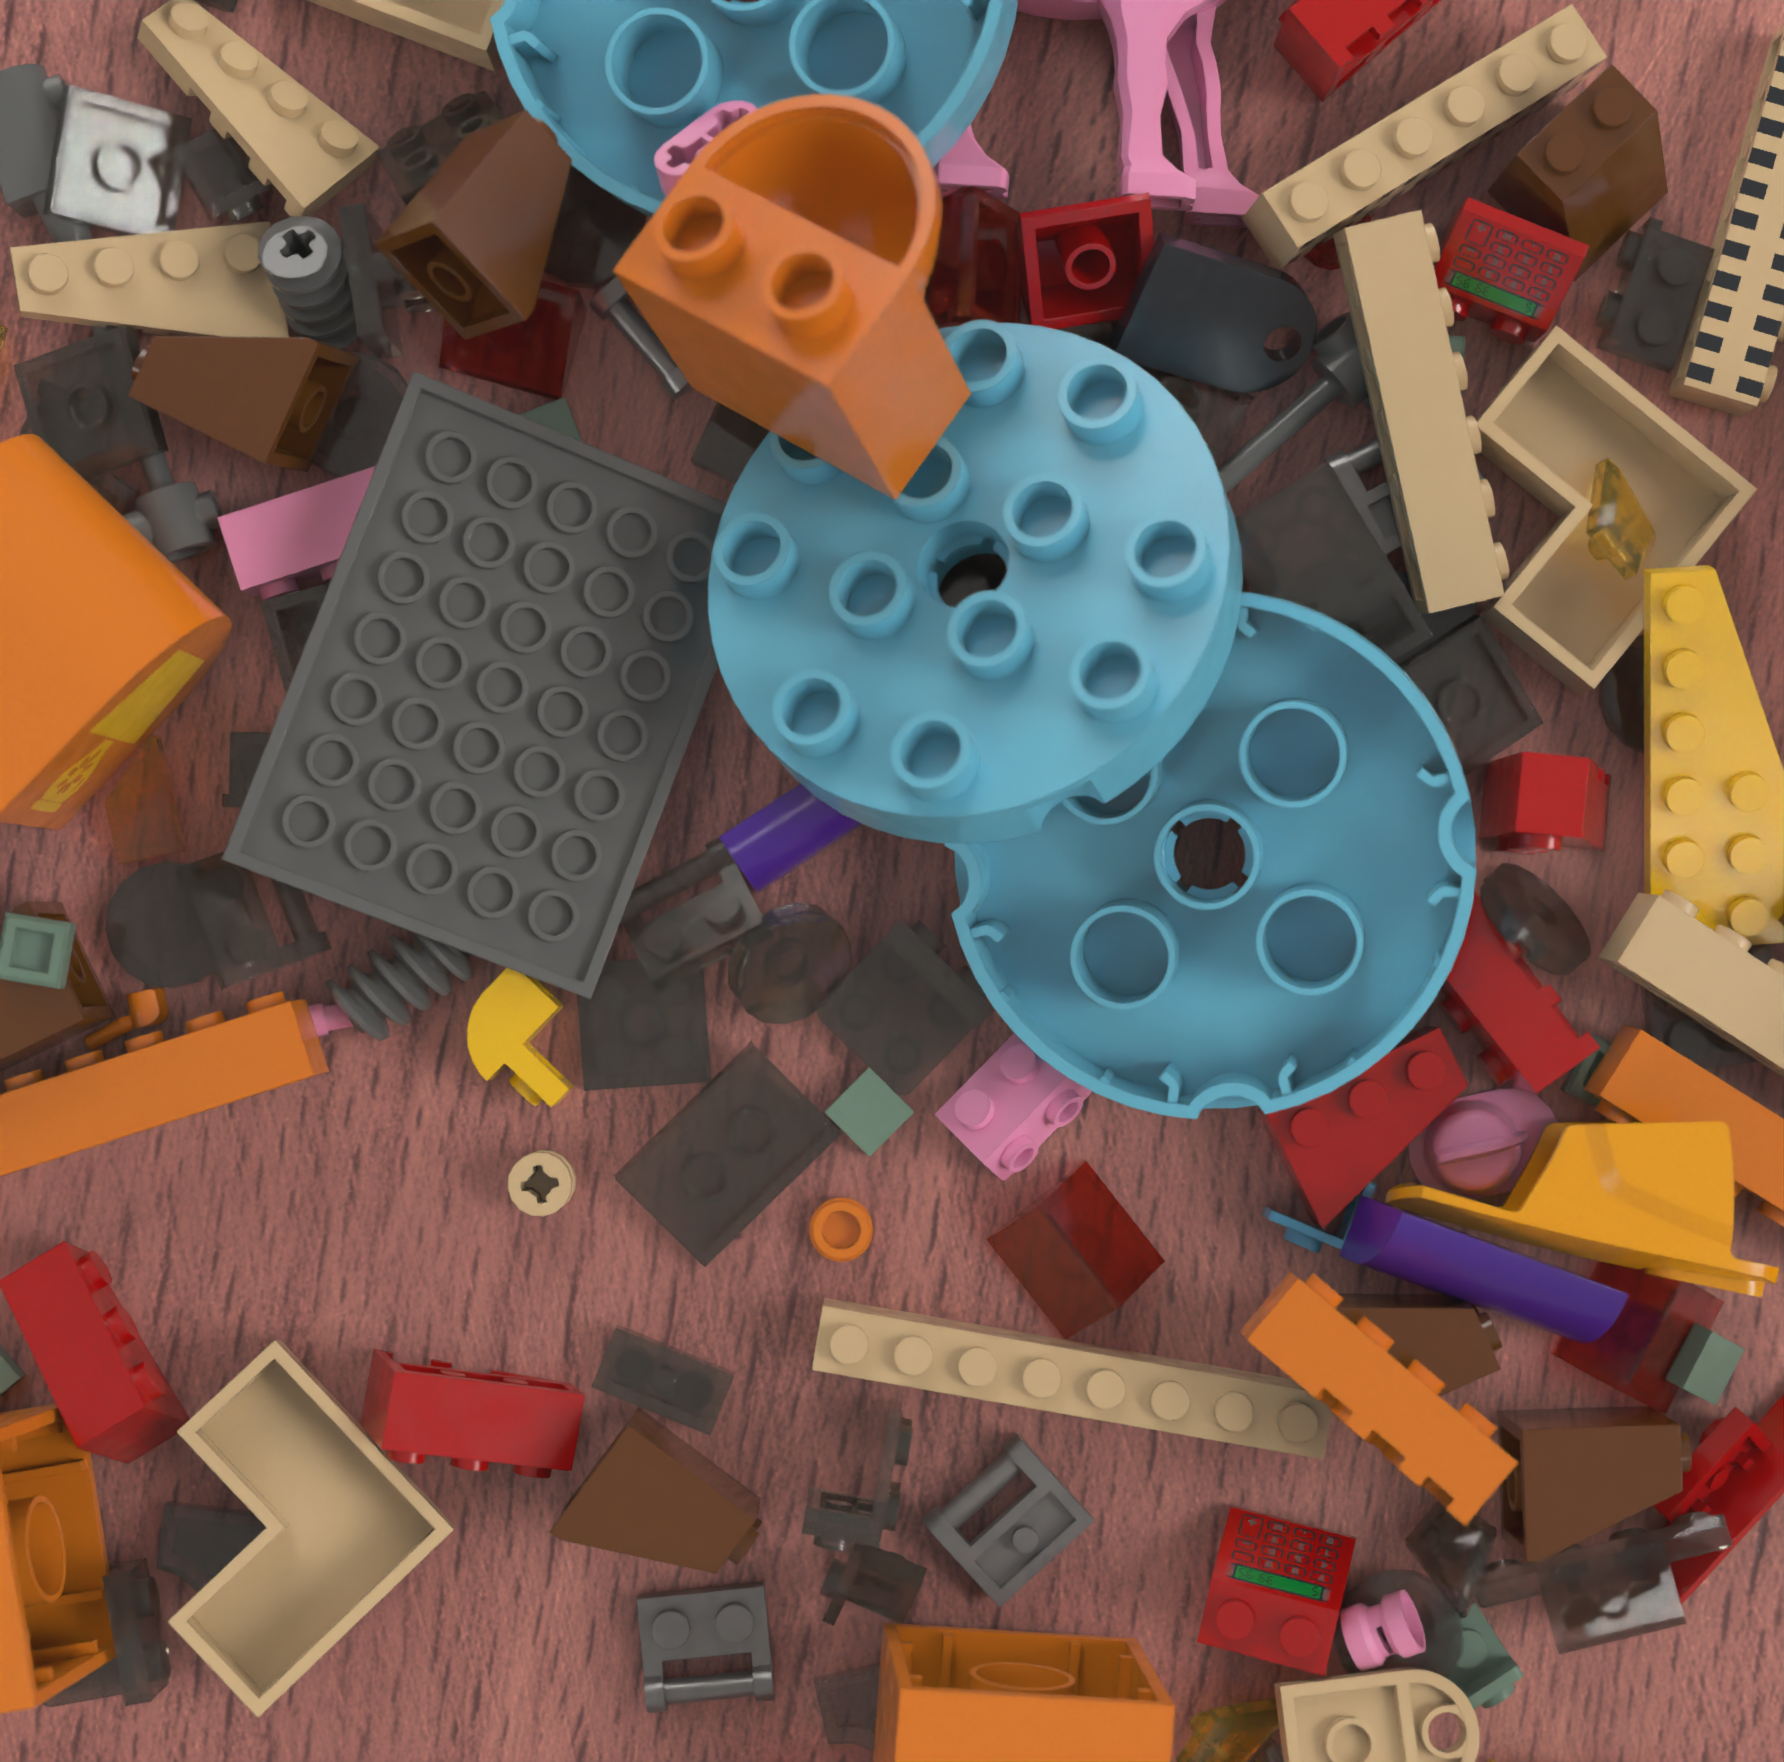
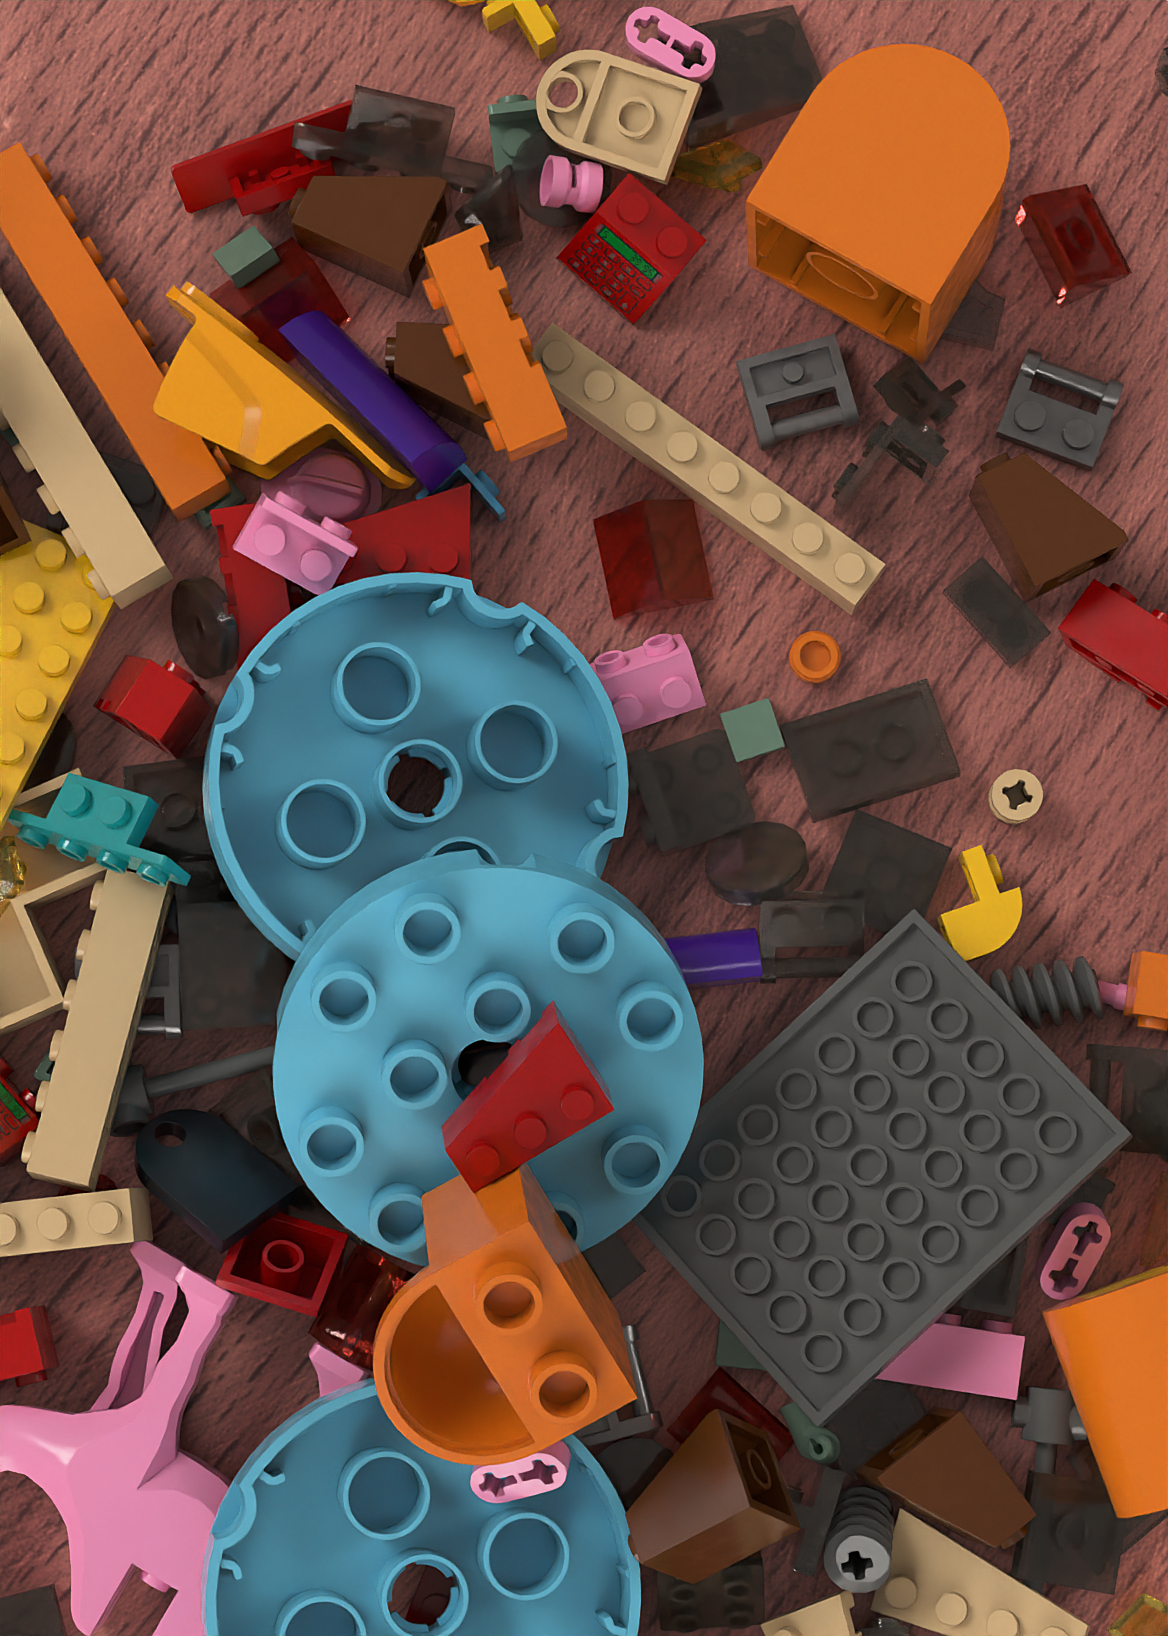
camera: 145 degrees left, 5 degrees down
(226, 712) = (1082, 1253): none -> bright pink beam
(405, 359) = (812, 1442): none -> sand green arm
(901, 542) = (527, 1104): none -> red wedge
(1484, 1057) = (295, 544): none -> bright pink bracket
(1539, 636) = (103, 824): none -> teal bracket

